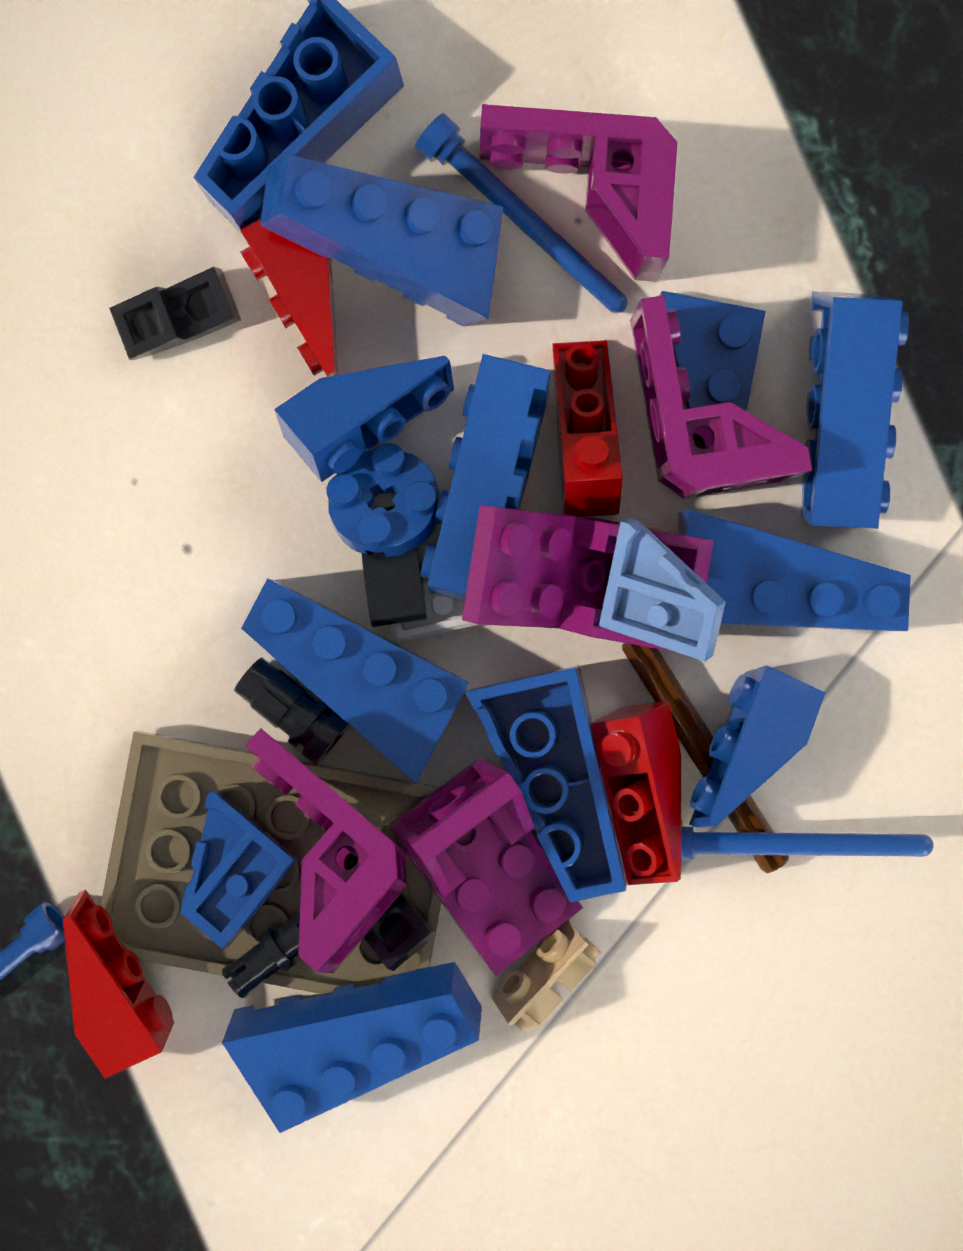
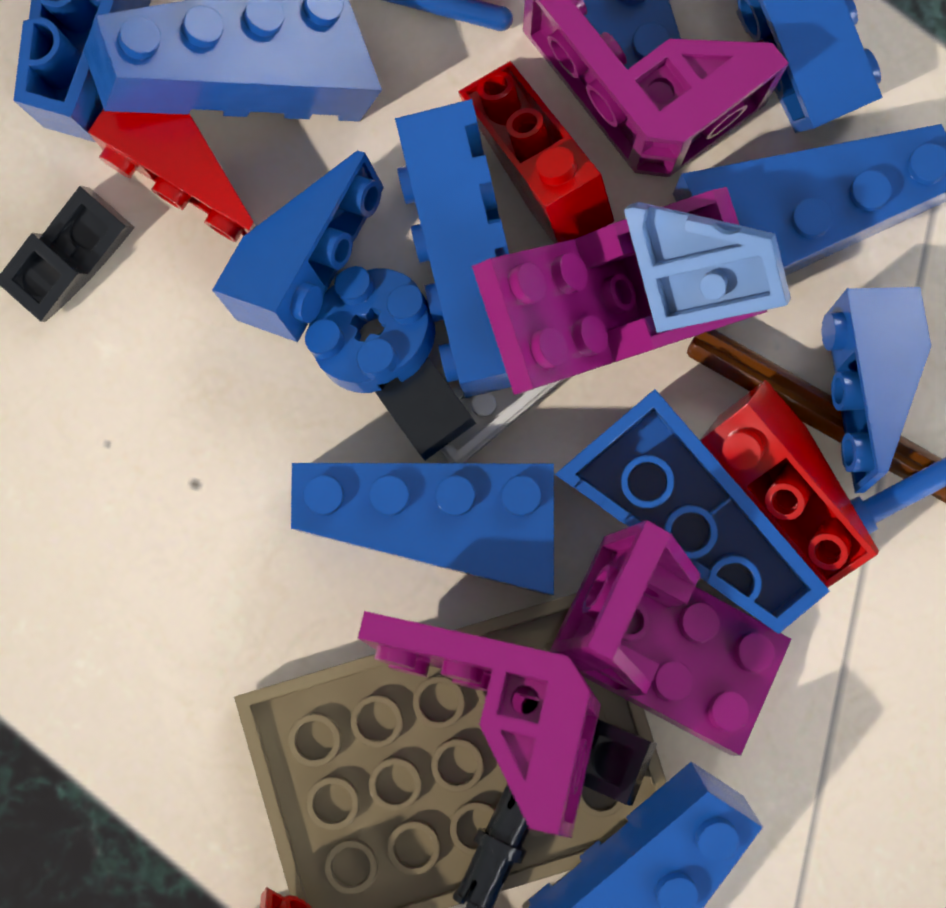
camera: 25 degrees left, 5 degrees down
(232, 871) = (412, 788): blue wing -> none
(291, 709) = (385, 589): black axle -> none
(527, 994) = (780, 757): tan hinge -> none

